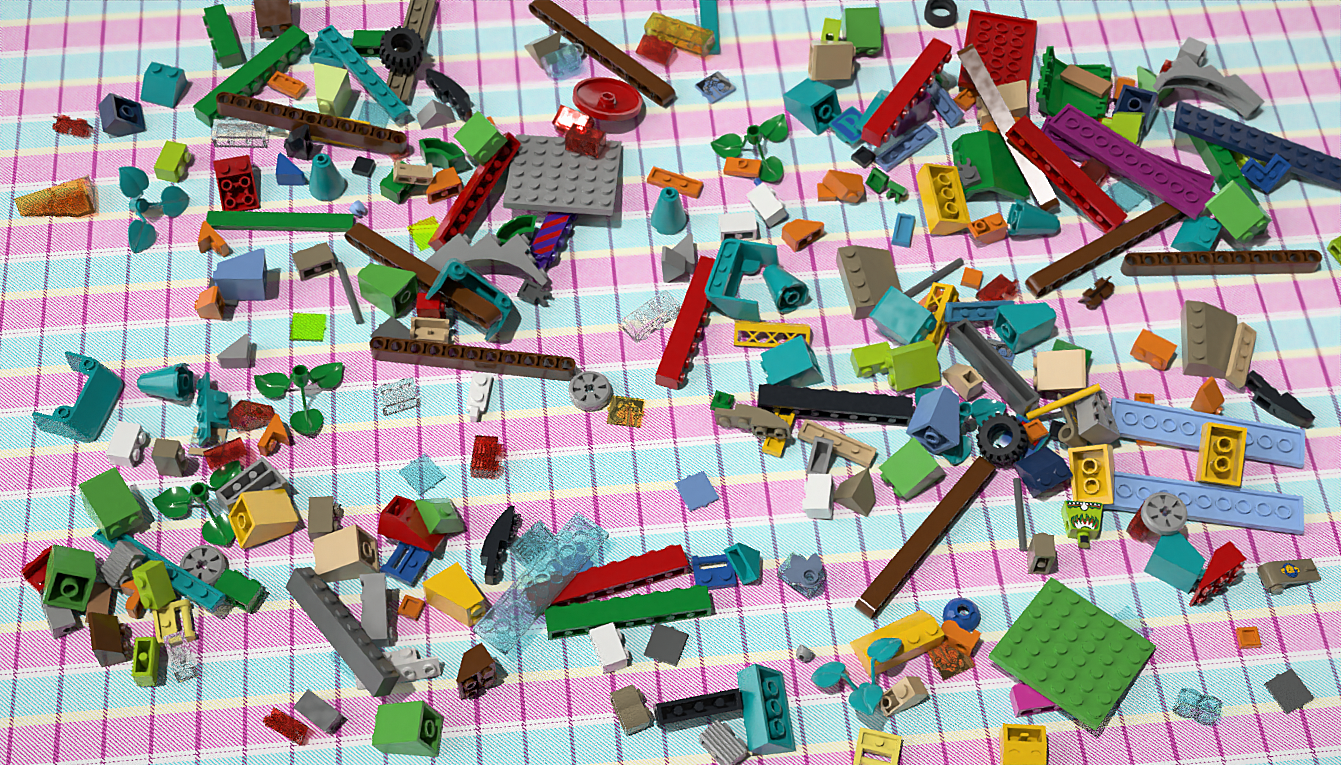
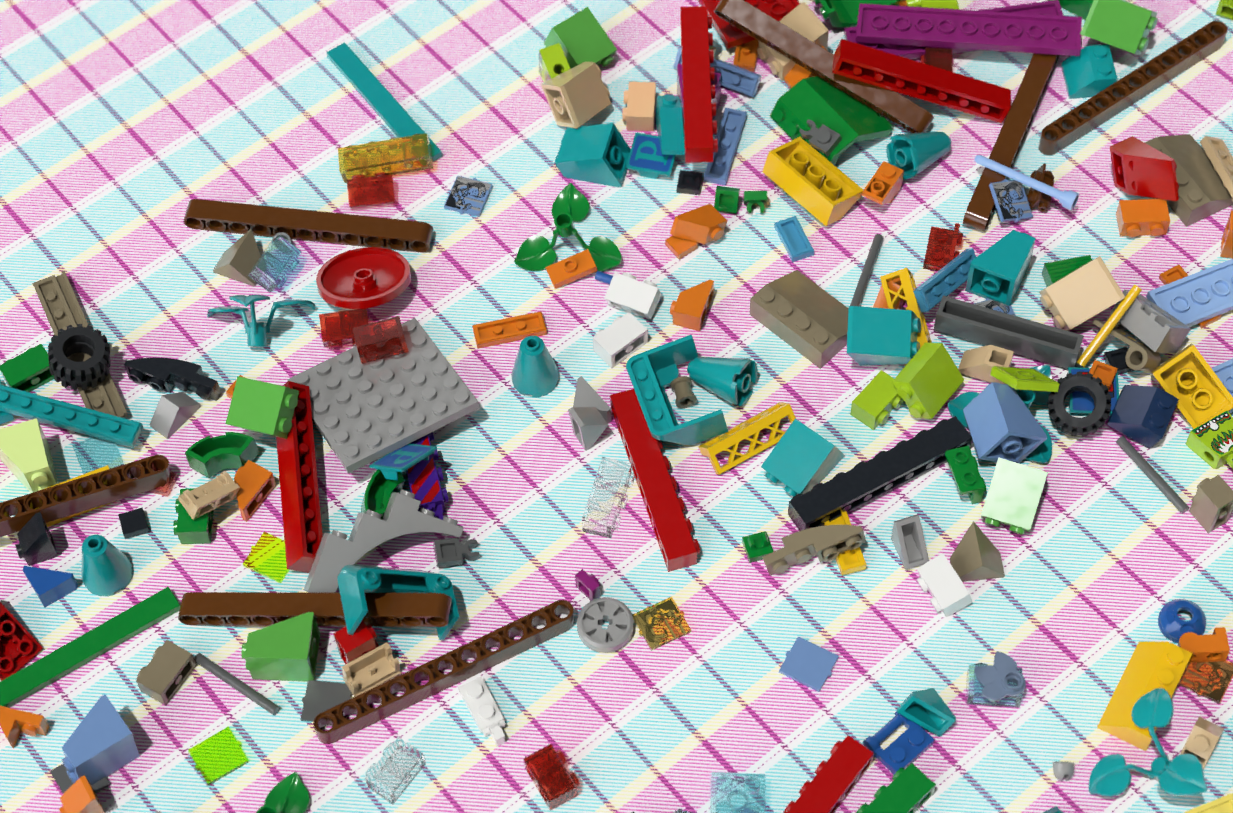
camera: 30 degrees left, 0 degrees up
(357, 207) = (166, 577): light blue hinge -> none
(518, 95) = (255, 330): none -> teal plant
(538, 216) = (402, 459): none -> piece
(597, 360) = (588, 585): none -> magenta plate
(751, 282) = (683, 392): none -> dark tan bush
(843, 445) = (931, 513): tan plate -> none
(867, 89) = (640, 106): none -> light nougat brick
(889, 435) = (966, 473): none -> green bracket
(925, 537) = (1083, 562): reddish brown beam -> none
(971, 278) = (904, 249): orange tile -> none
(973, 399) = (1024, 379): none -> lime tile
(1068, 286) = (1010, 200): none -> piece
(1106, 307) = (1067, 198): none -> light blue piece
(1125, 194) = (984, 67): clear light blue piece -> none
(1174, 316) = (1143, 170): none -> red slope

